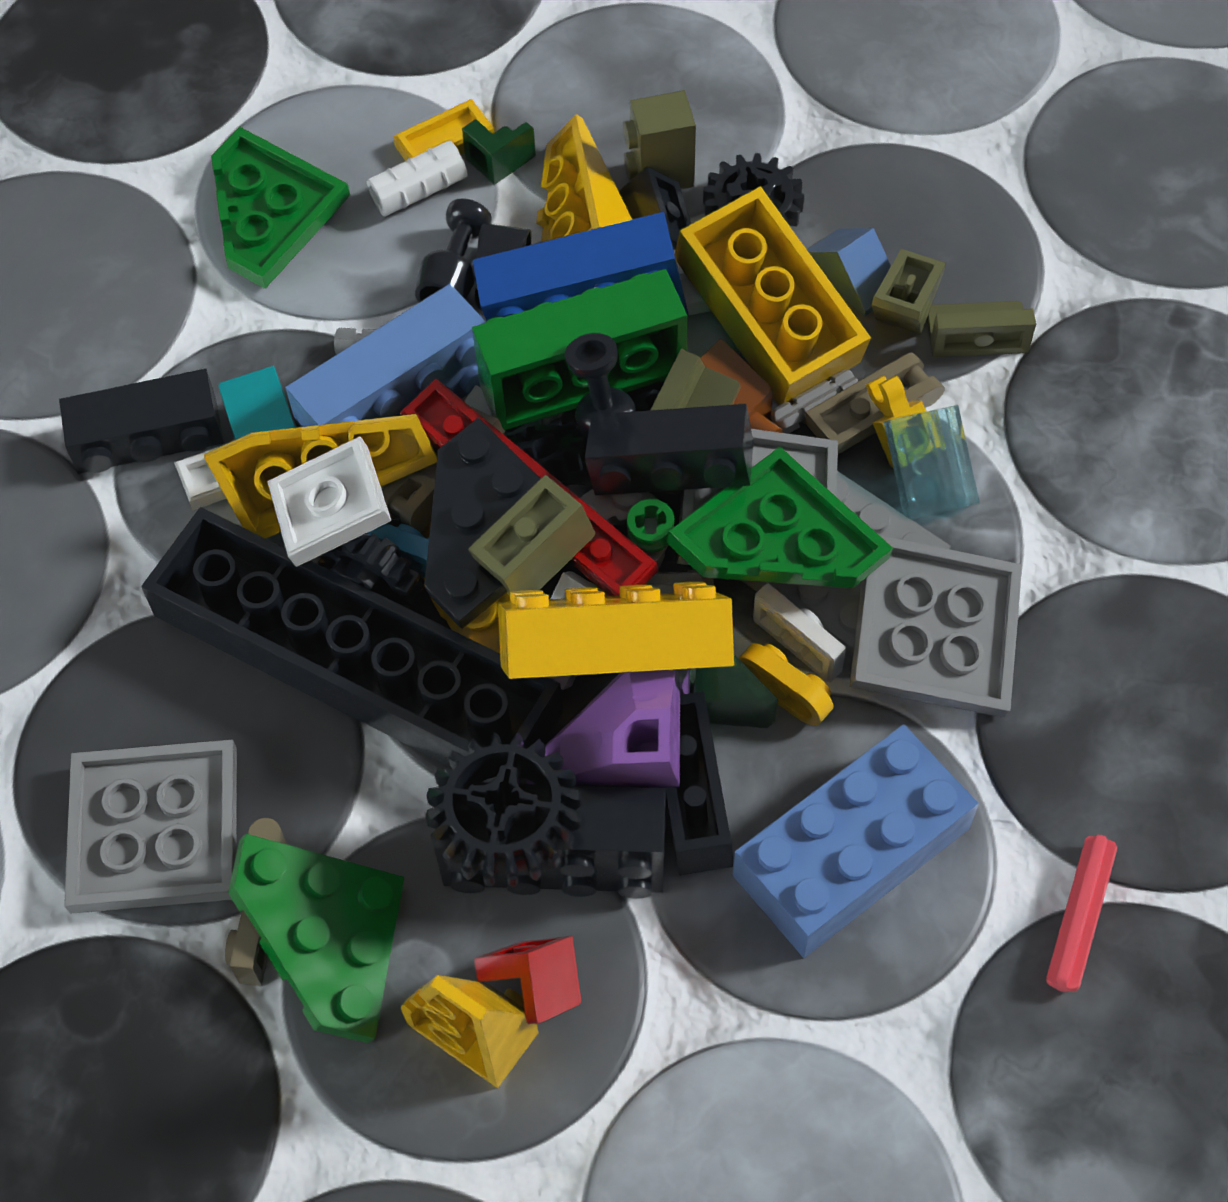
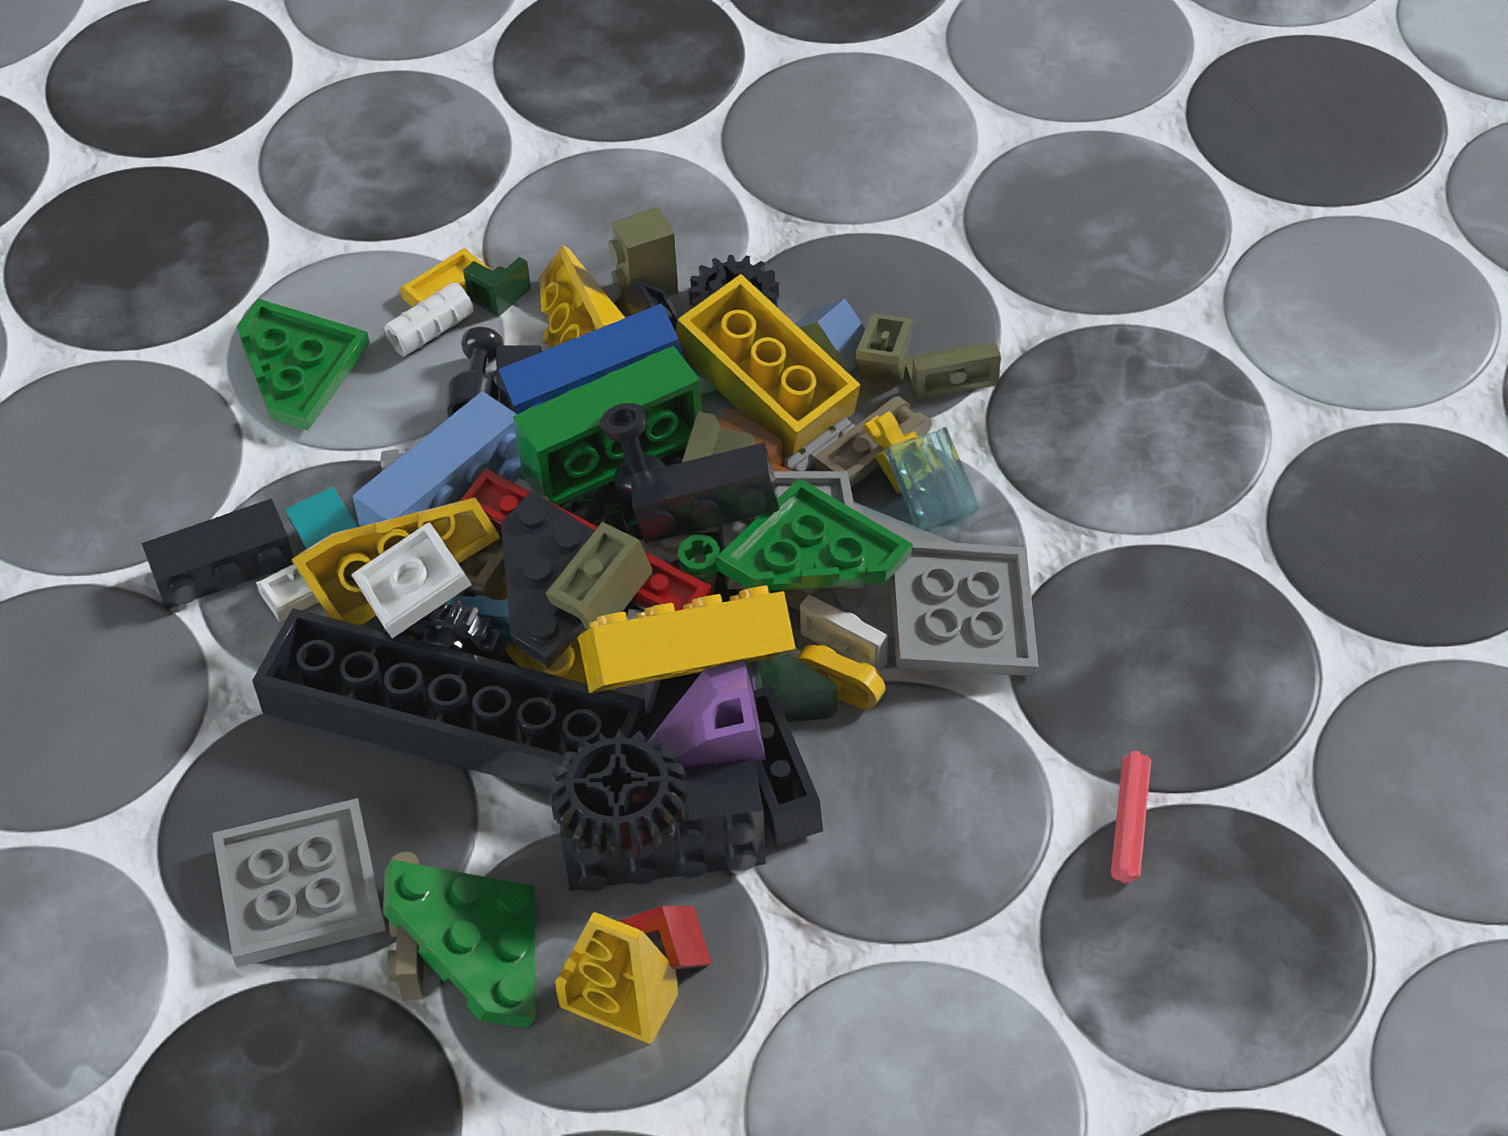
camera: 10 degrees left, 10 degrees down
(853, 840) = (923, 789): medium blue brick -> none

